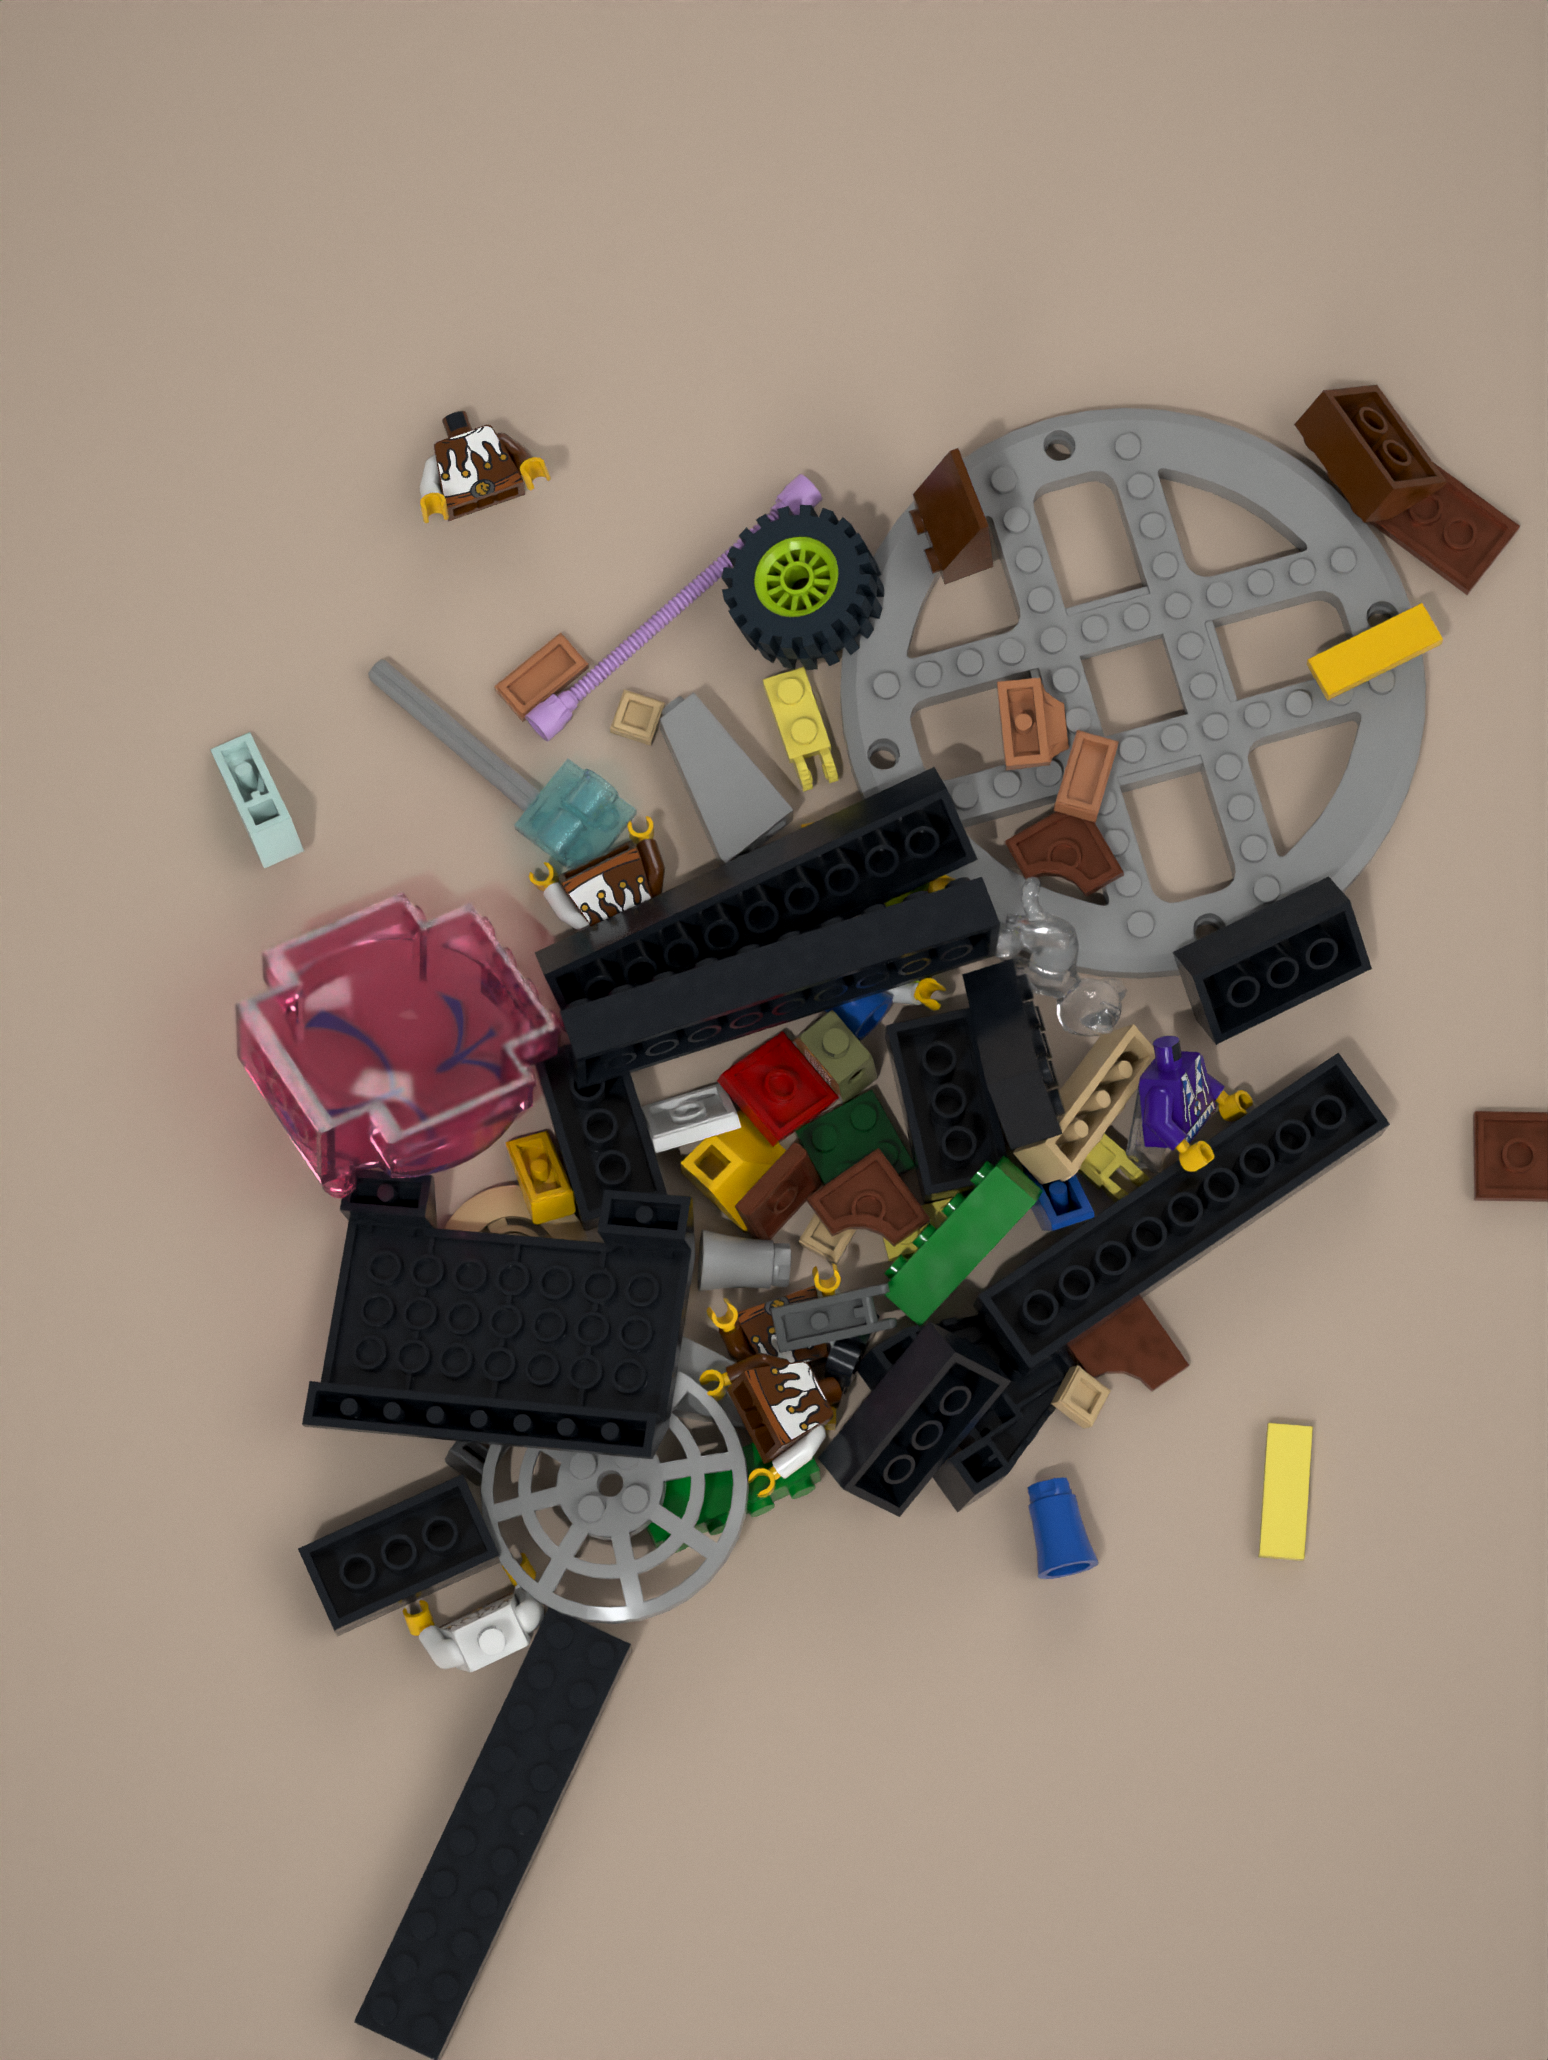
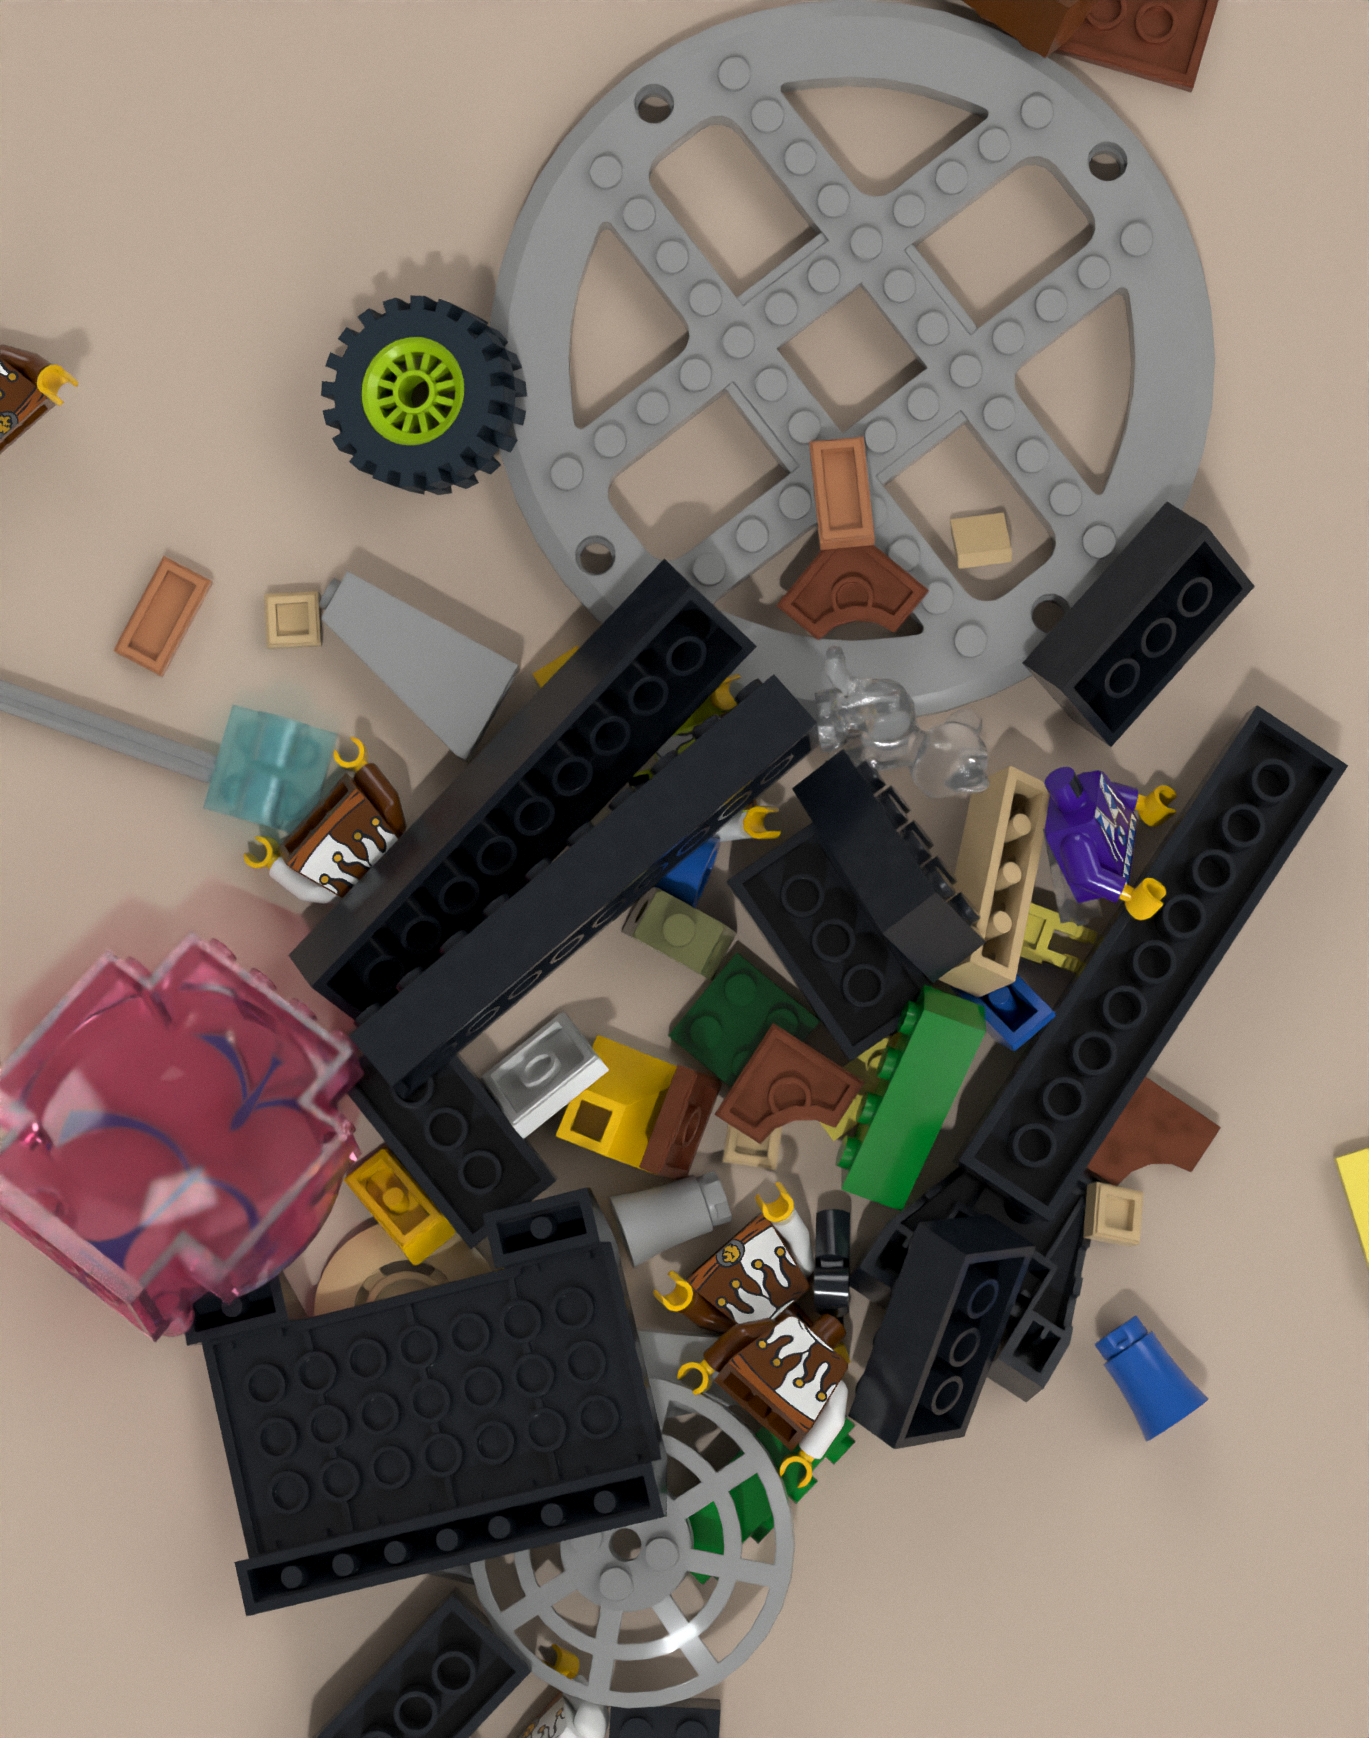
camera: 20 degrees left, 10 degrees up
(552, 714) = (195, 655): lavender hose -> none
(777, 1089) = (629, 996): red tile -> none
(800, 724) = (483, 553): light yellow hinge -> none
(829, 1318) = (798, 1248): dark grey hinge -> none
(952, 521) = (568, 253): reddish brown slope -> none
(1030, 724) = (753, 457): nougat slope -> none
(1178, 857) = (981, 540): none -> tan tile
(1374, 651) = (1116, 209): yellow tile -> none

